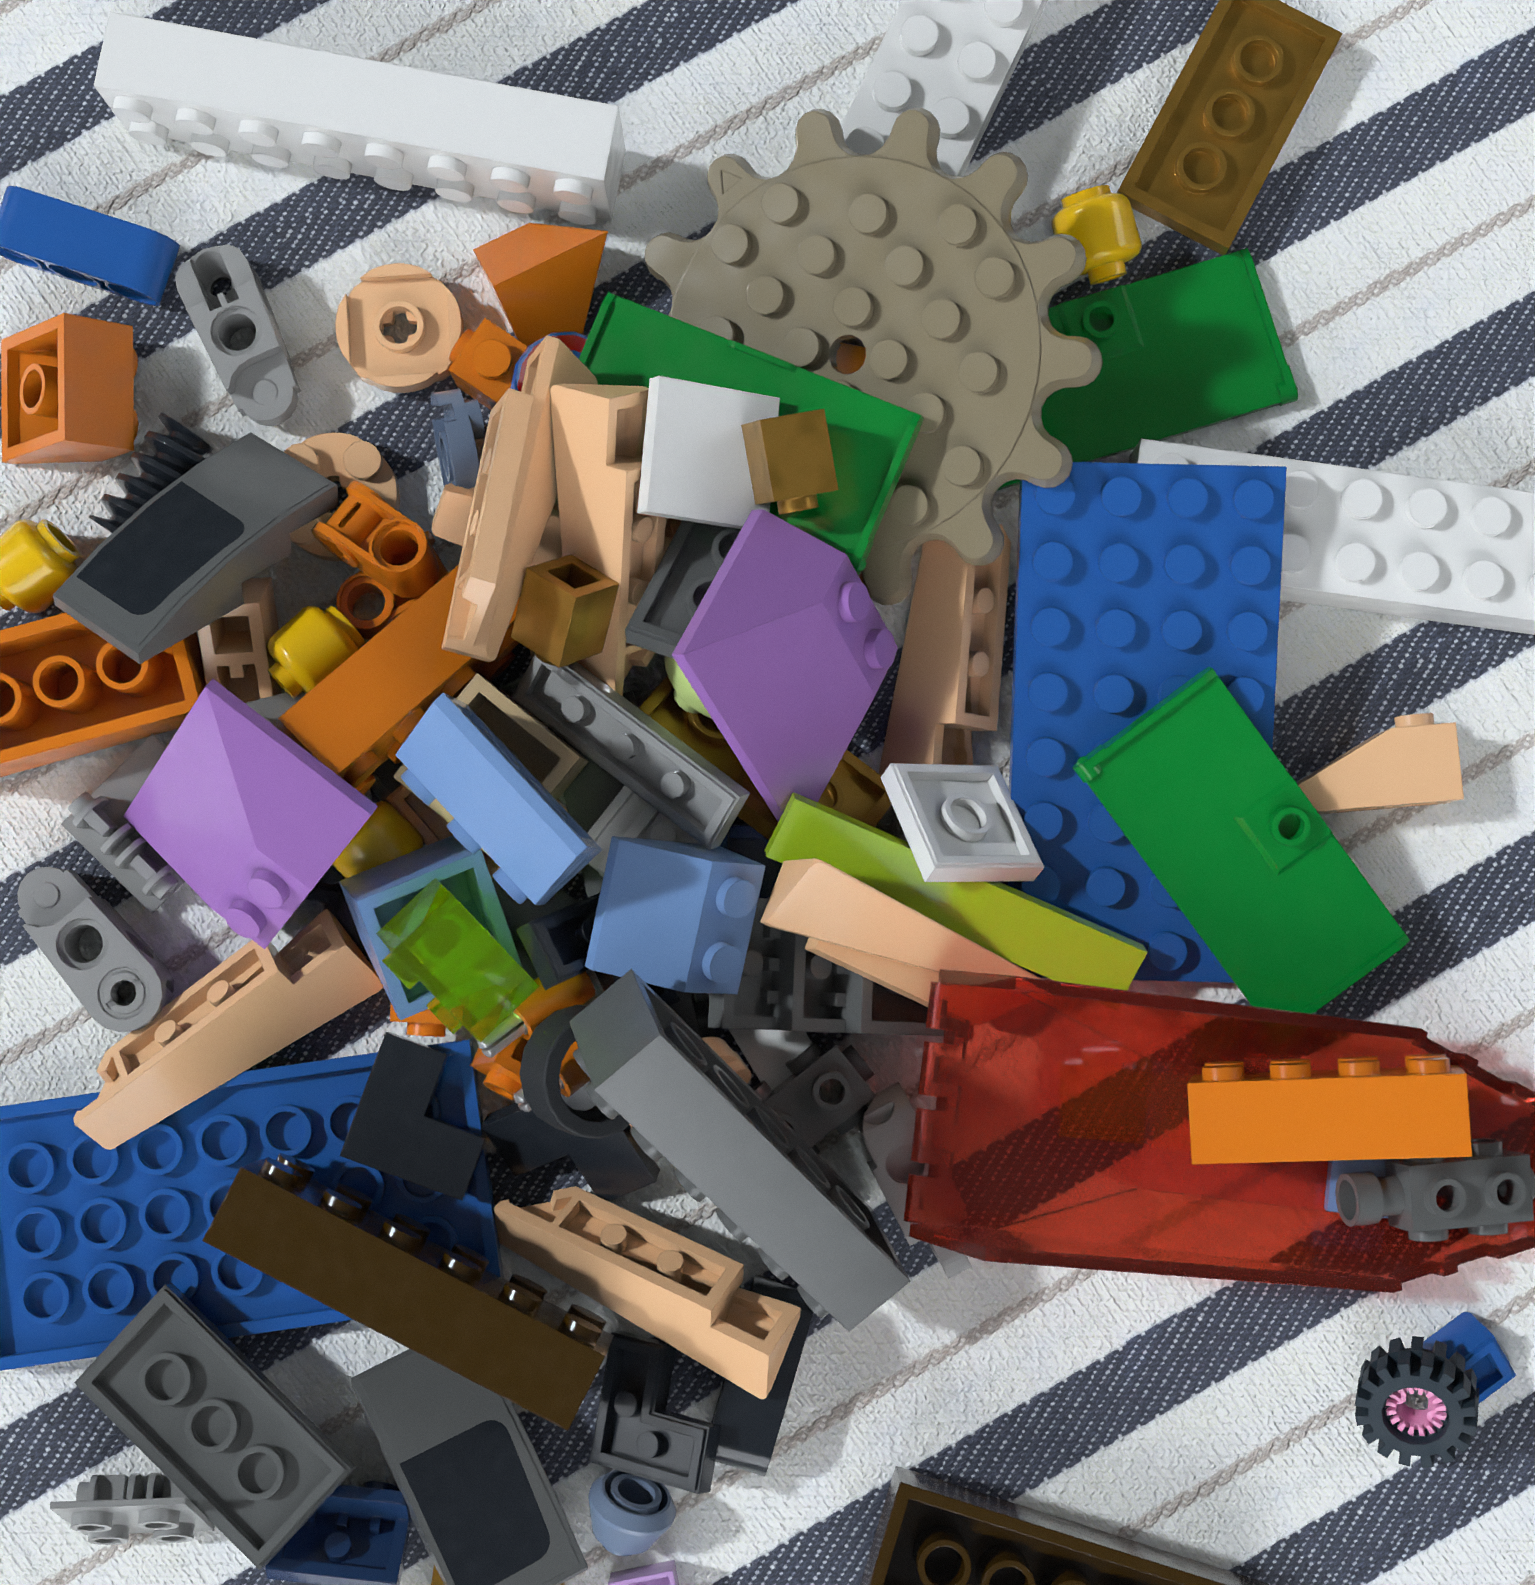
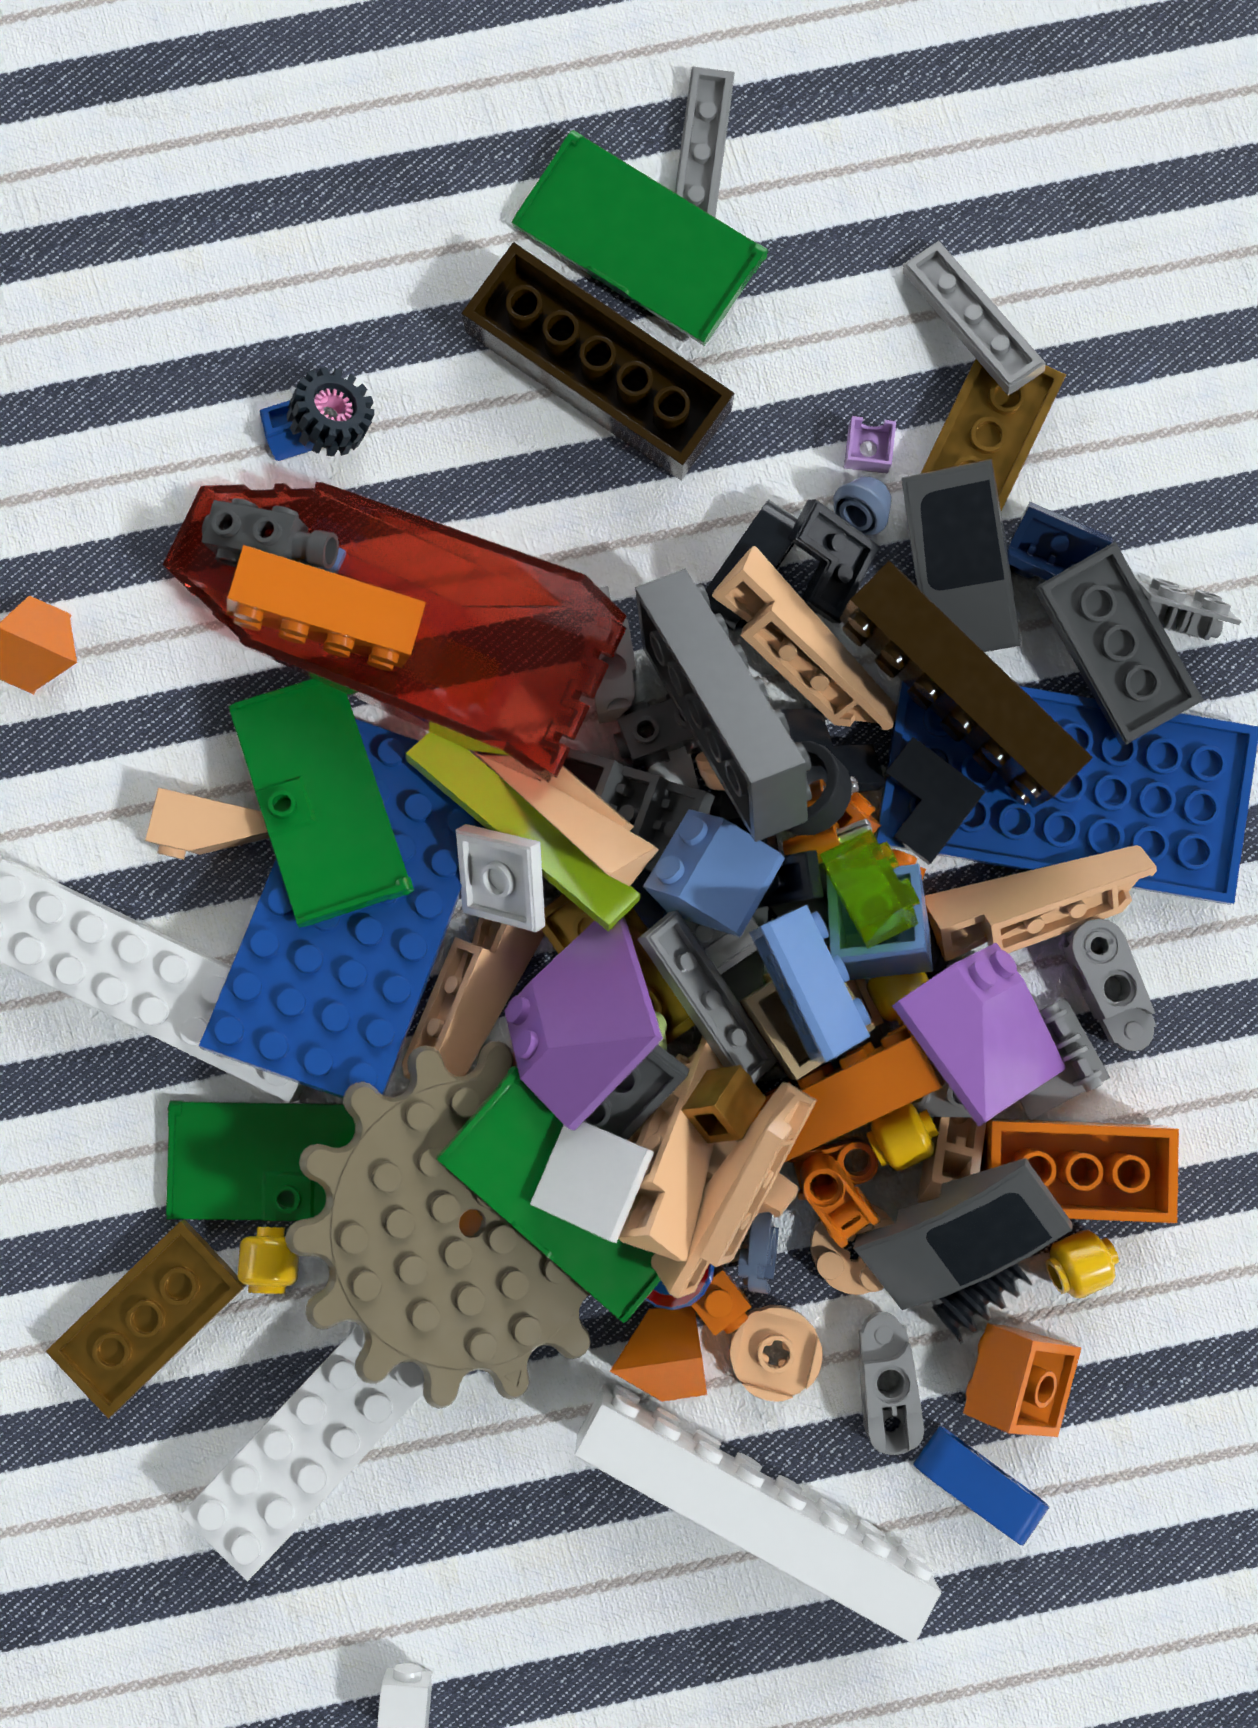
camera: 160 degrees left, 0 degrees up
(790, 460) = (537, 1155): pearl gold brick -> none

